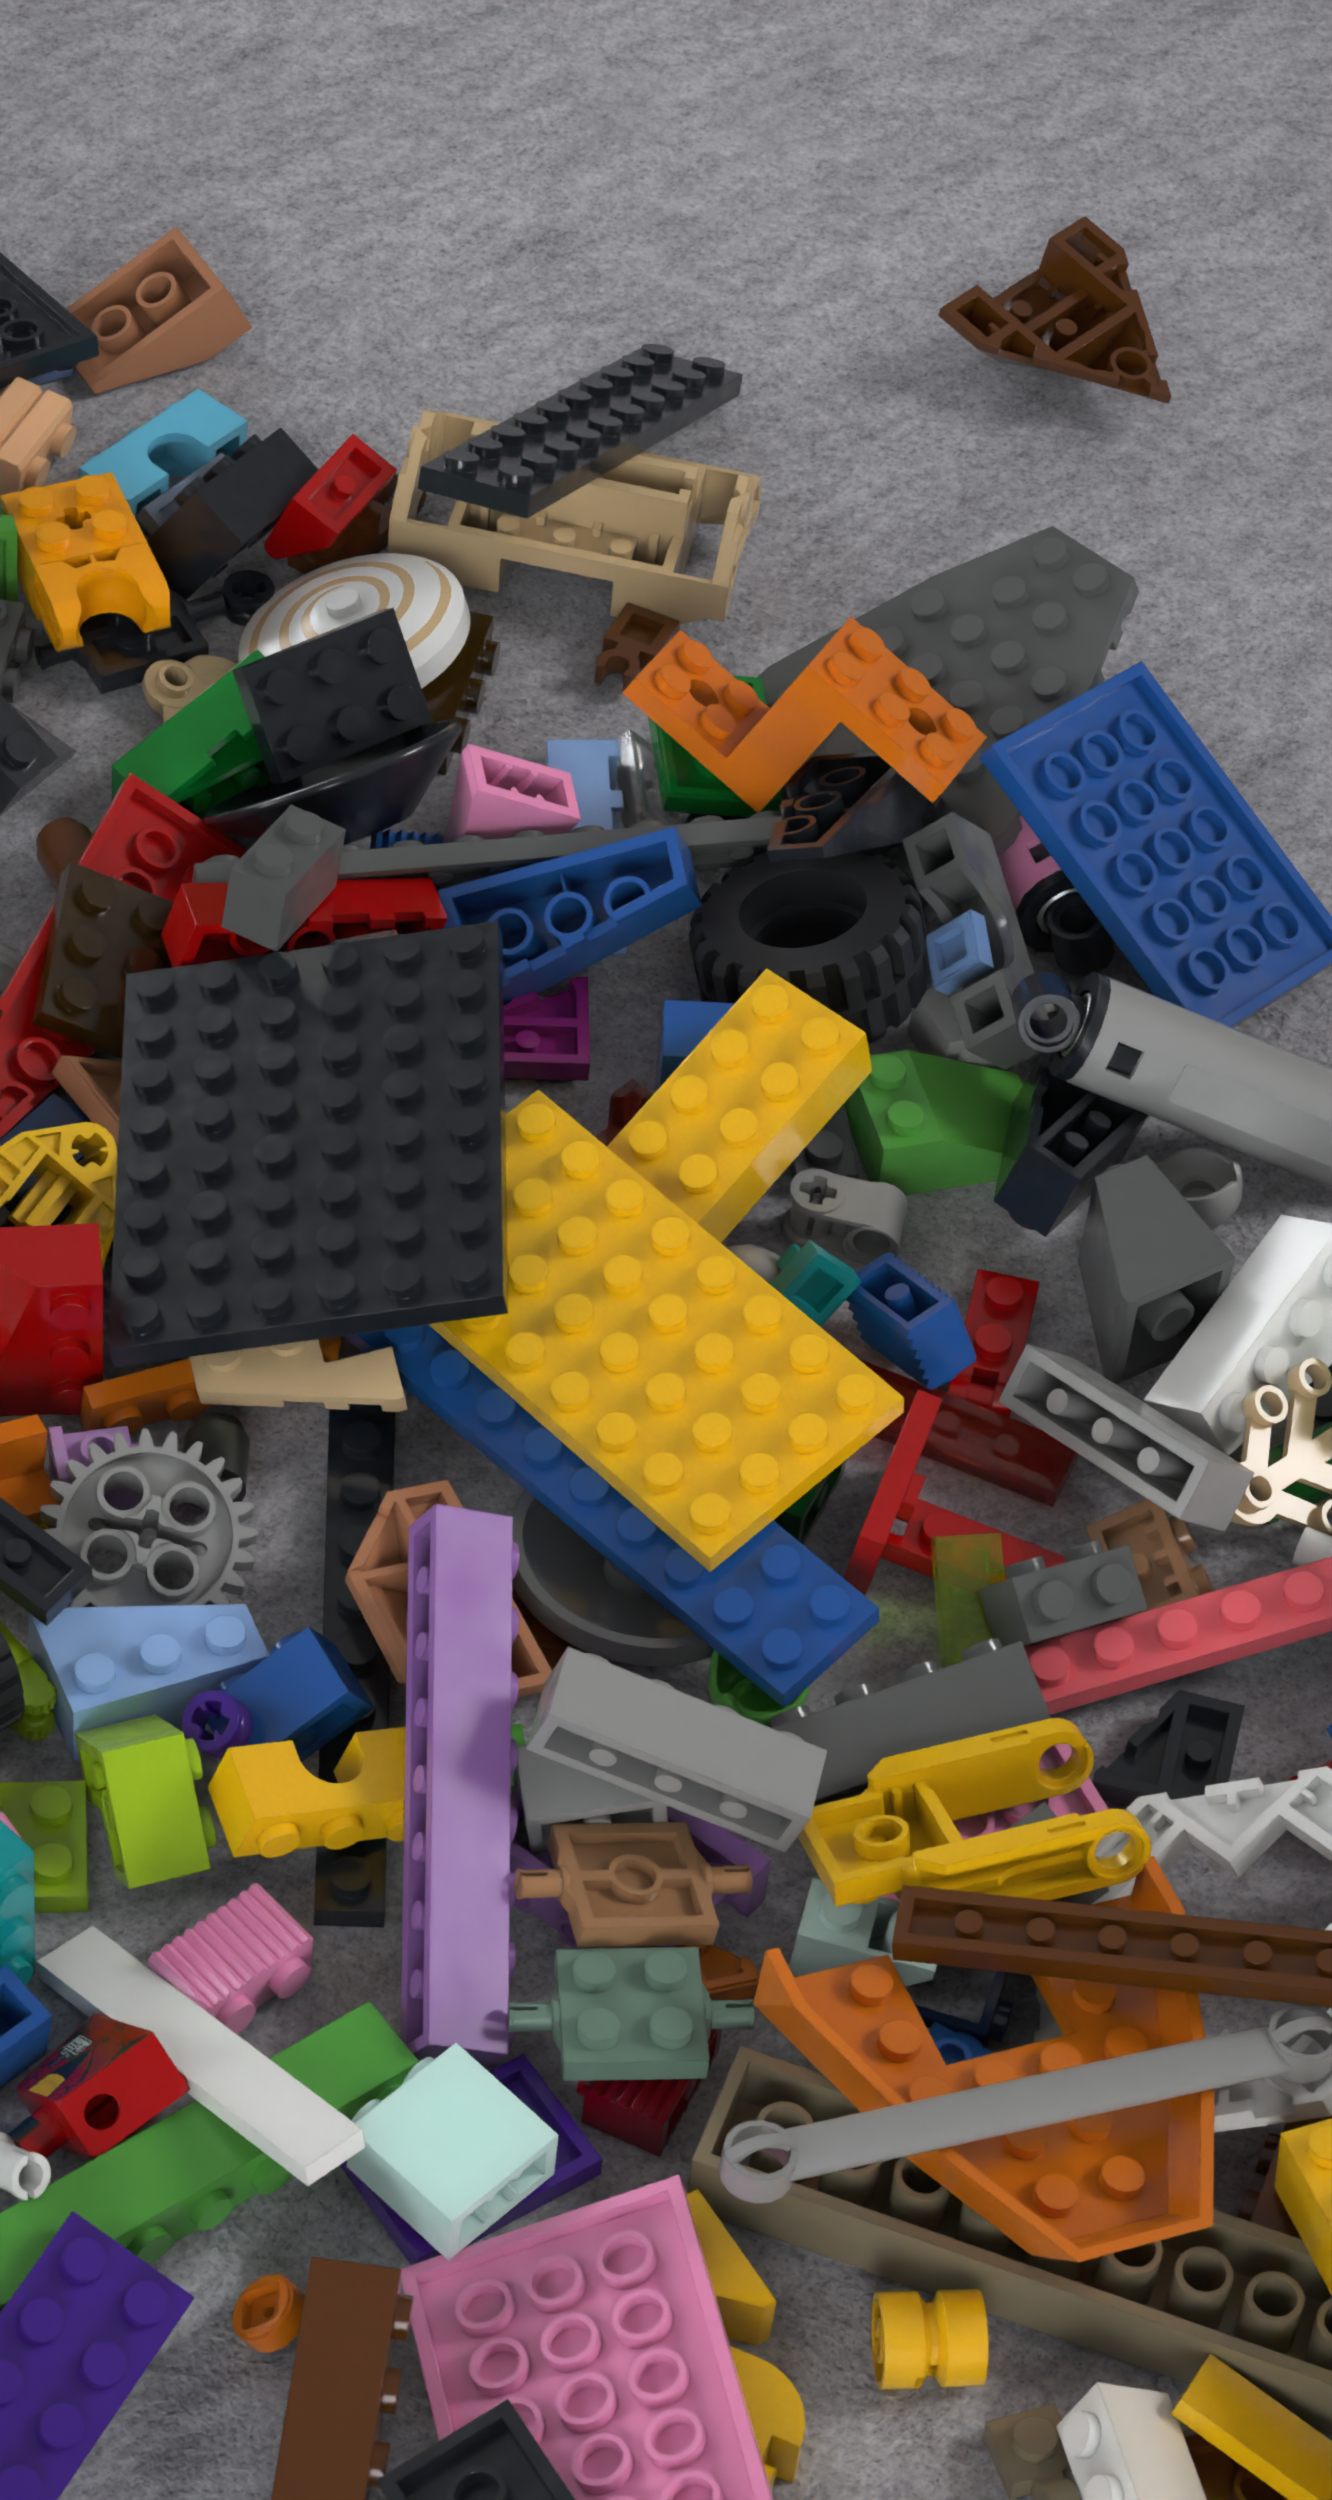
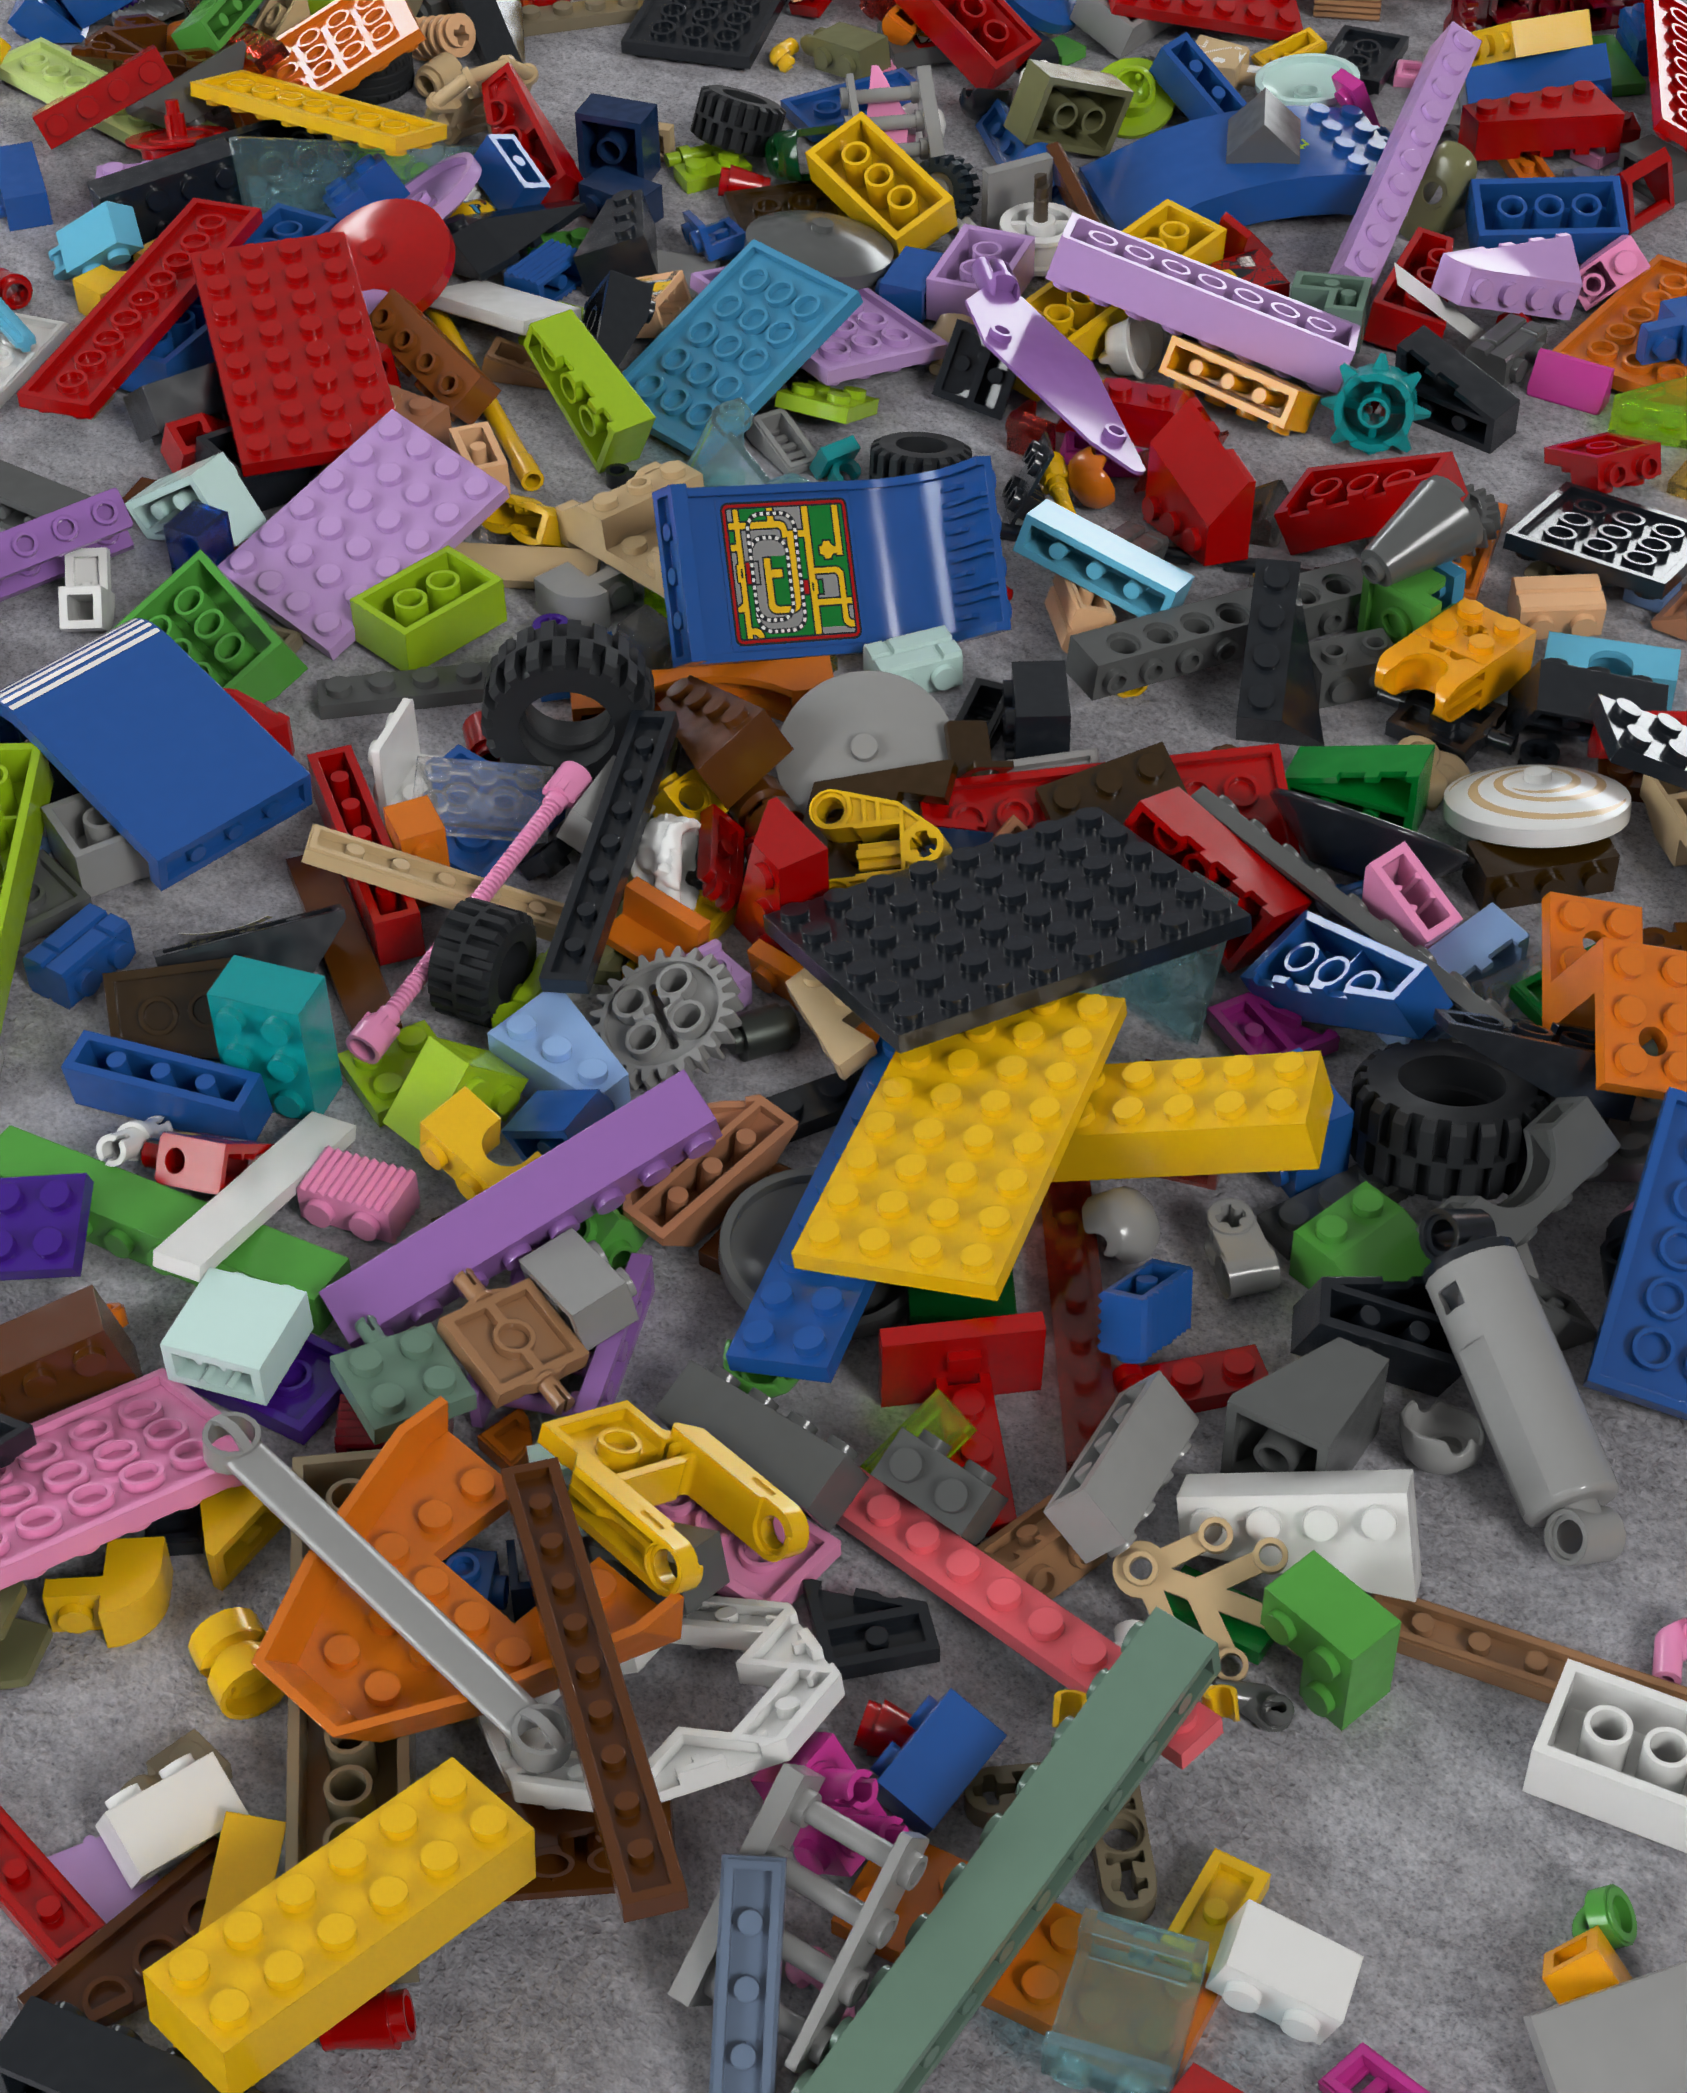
camera: 70 degrees right, 5 degrees down
(207, 1704) = (519, 1097): dark purple bush -> none
(283, 878) = (1203, 812): dark grey brick -> none
(332, 695) = (1433, 791): black plate -> none
(677, 1749) = (598, 1292): light grey brick -> none
(814, 1280) = (1128, 1238): teal tile -> none
(959, 952) = (1504, 1182): medium blue tile -> none

